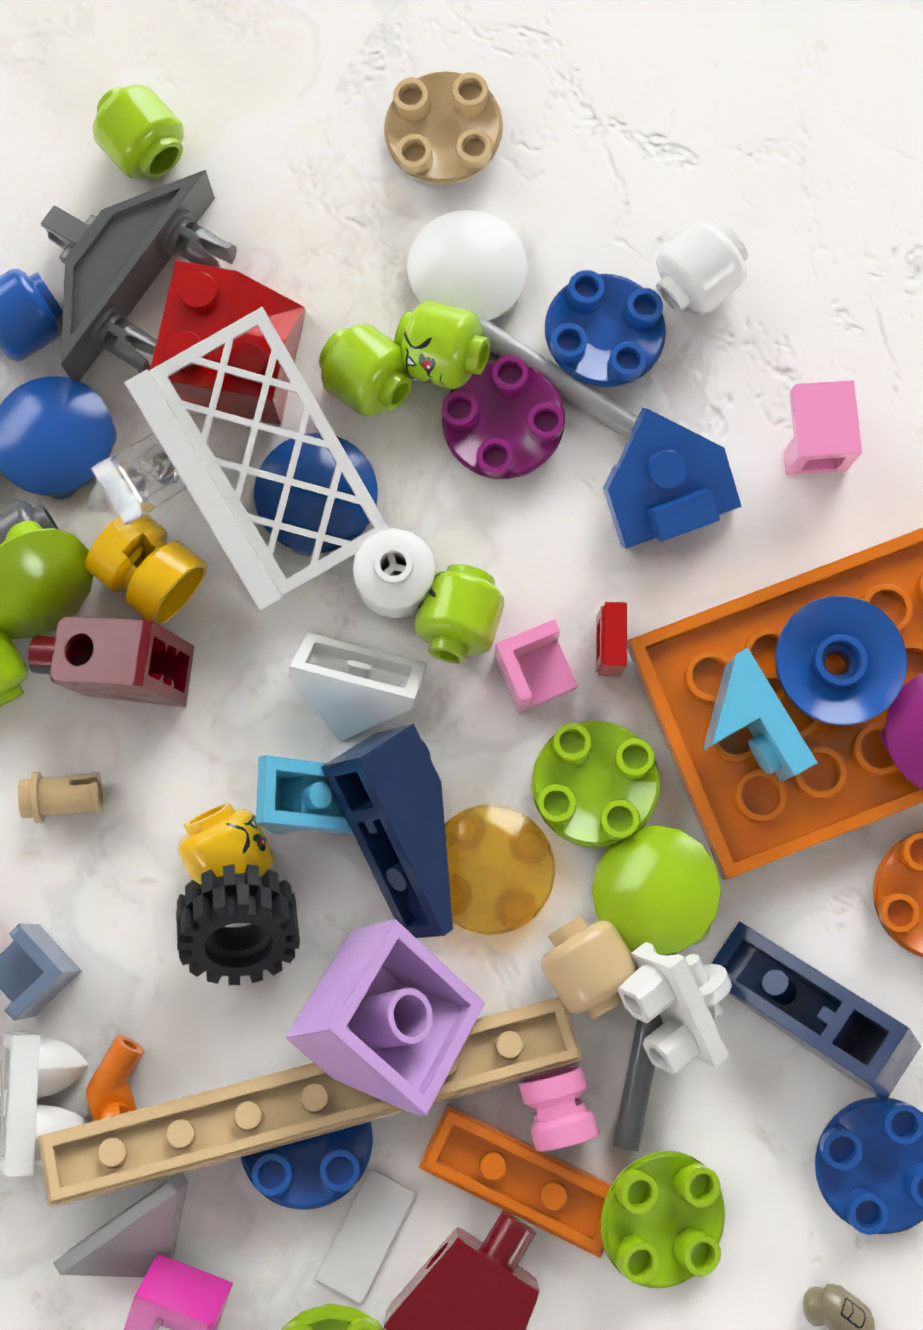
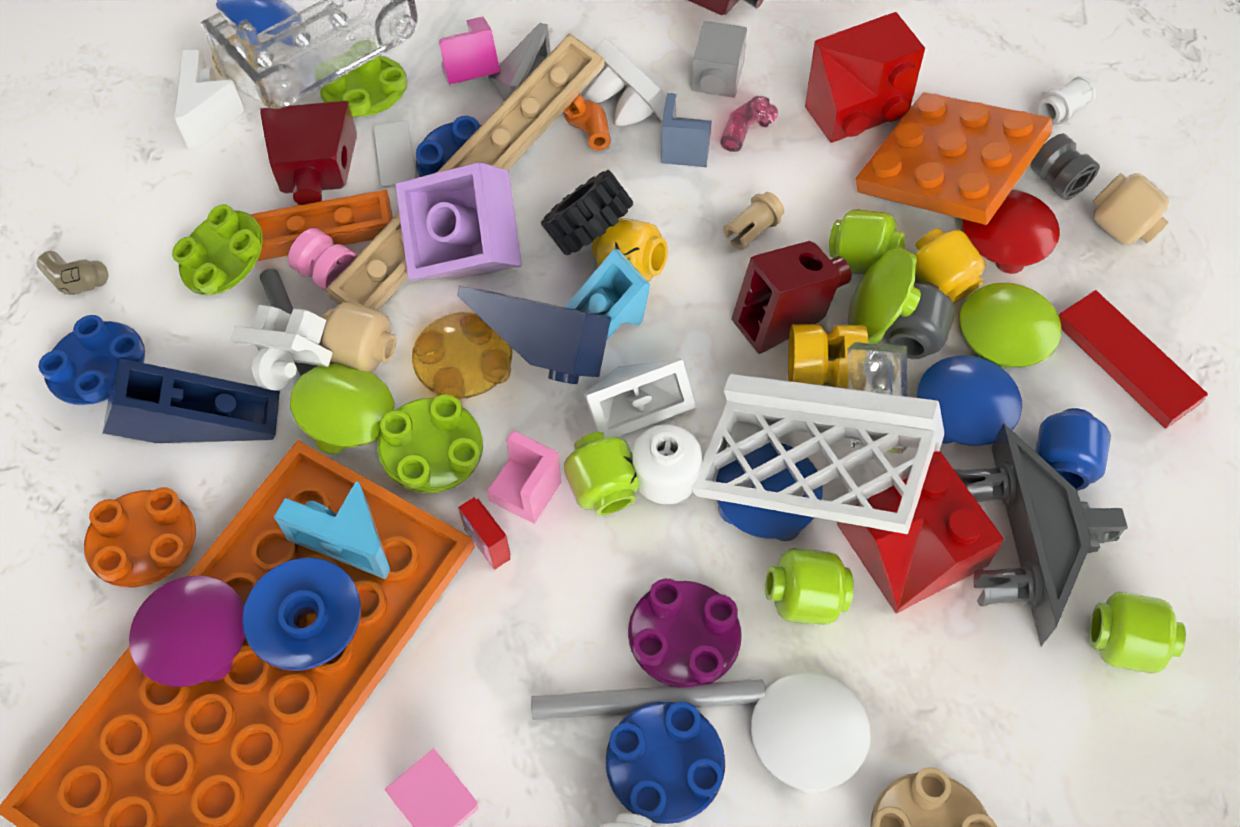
camera: 145 degrees right, 20 degrees down
(442, 345) = (772, 640): lime head -> none
(667, 482) = (522, 671): blue plate -> none

